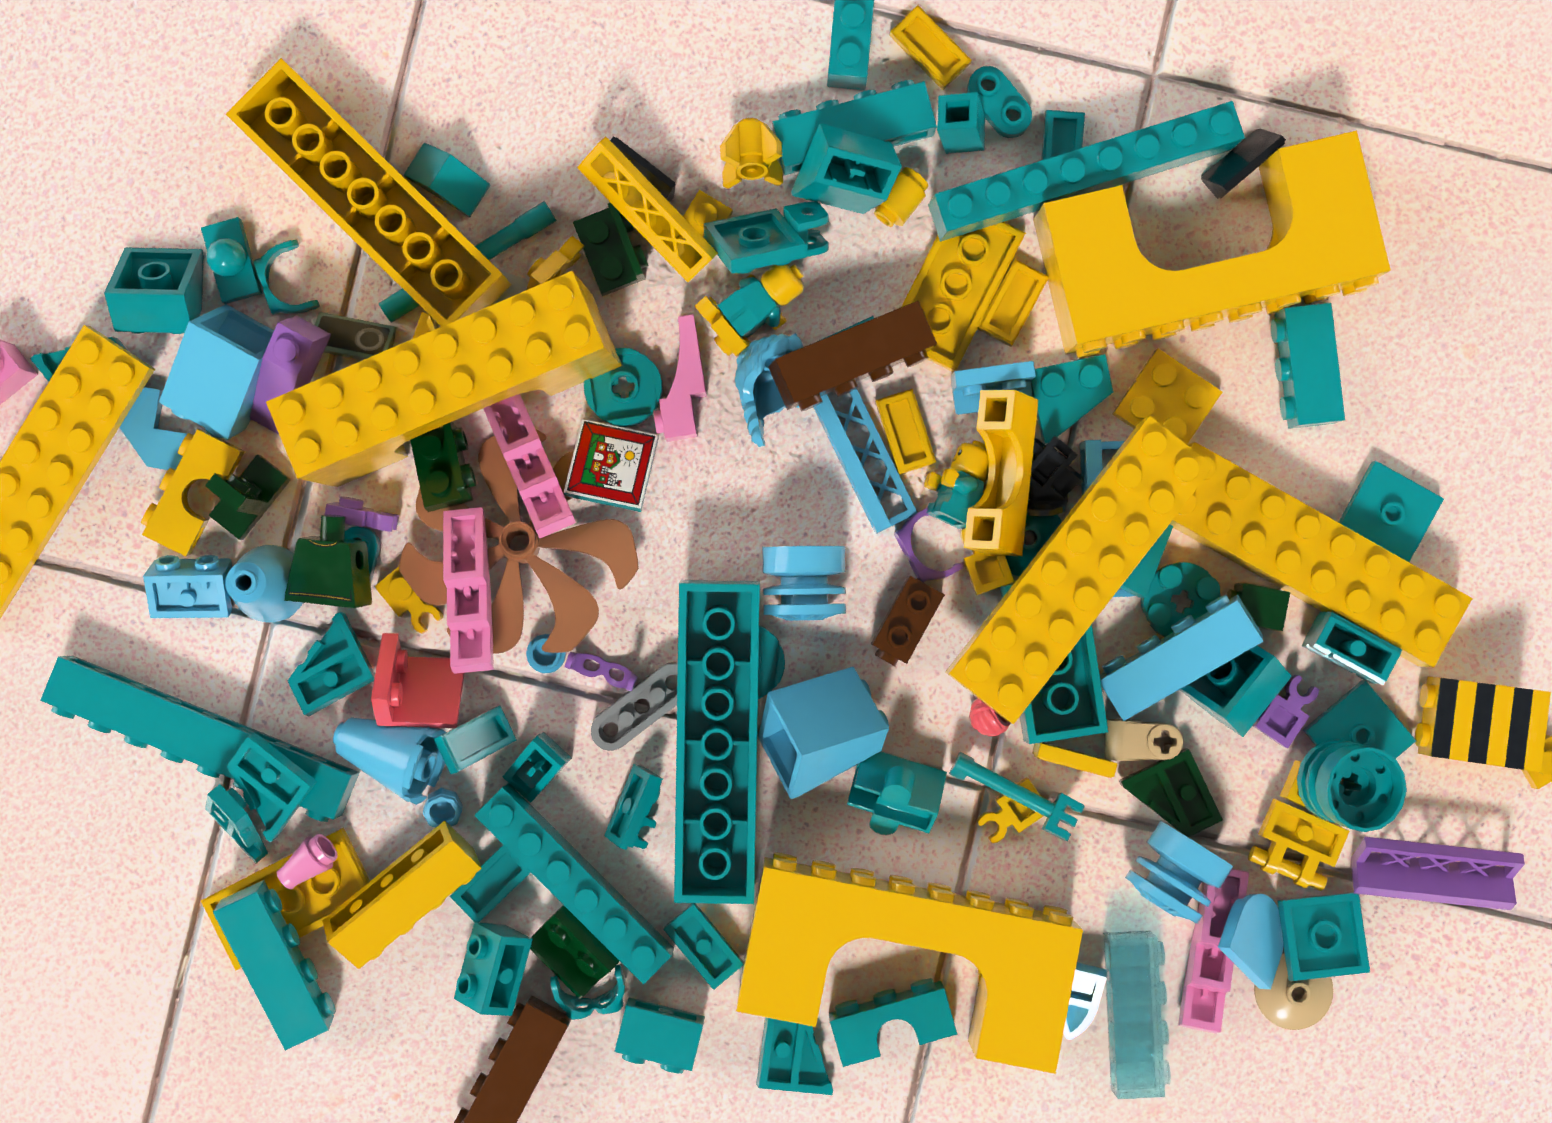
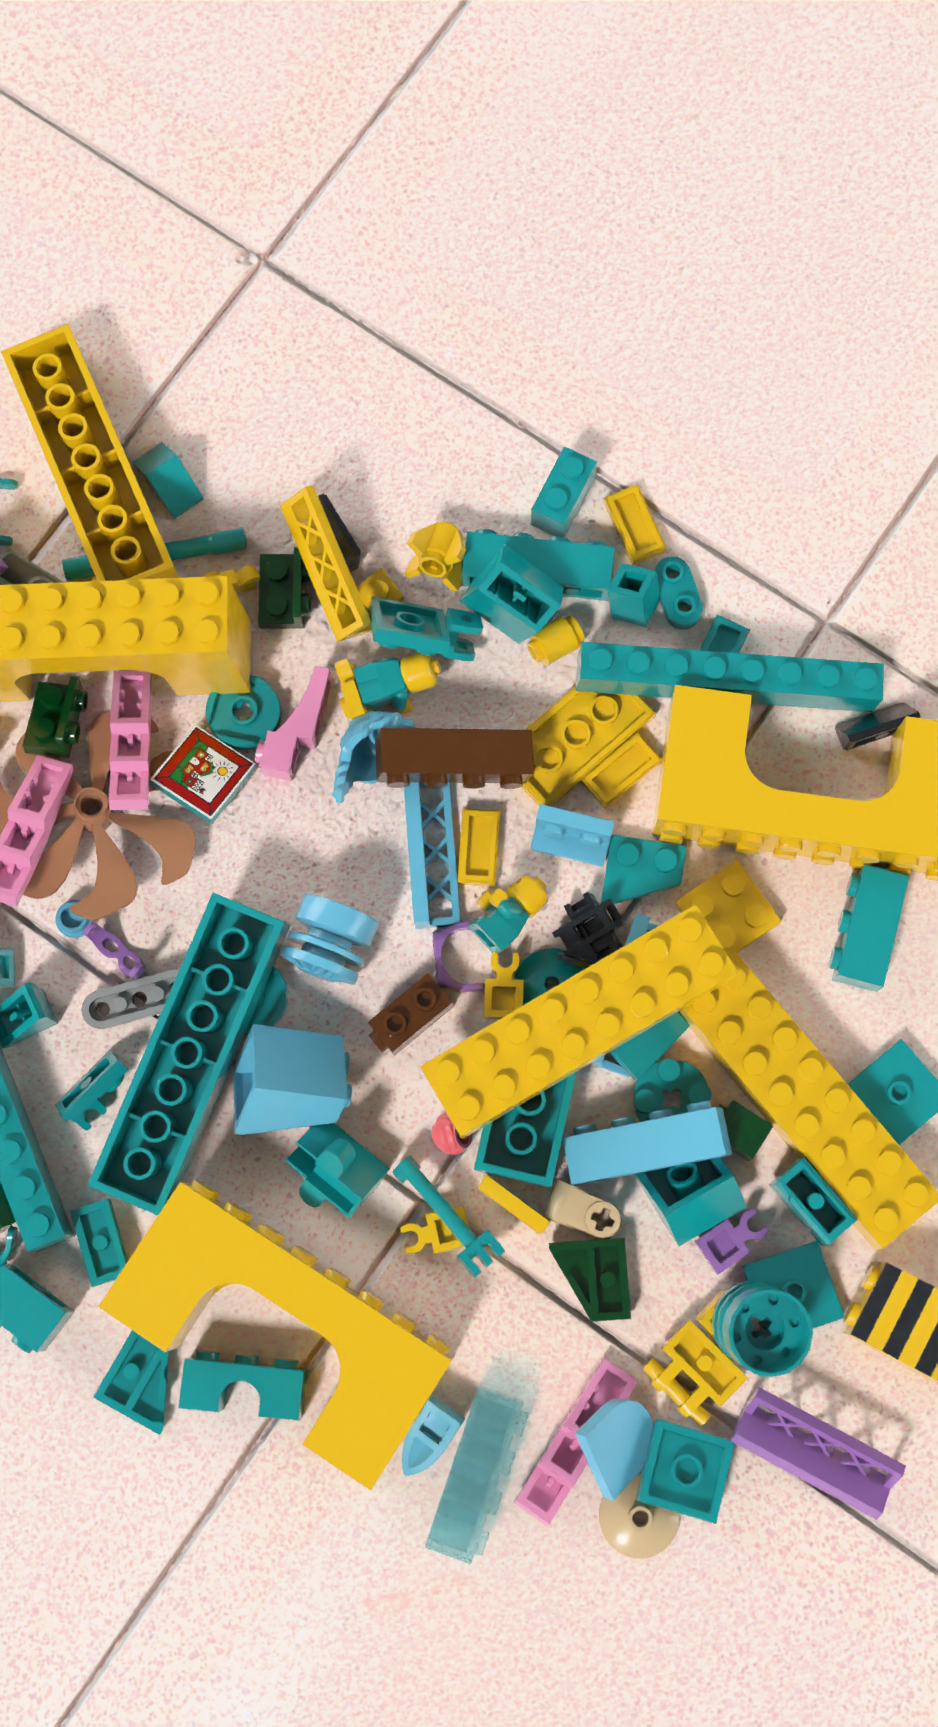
camera: 25 degrees right, 10 degrees down
(1008, 430) = (569, 873): yellow arch -> none
(1178, 872) = (567, 1349): medium azure wheel -> none

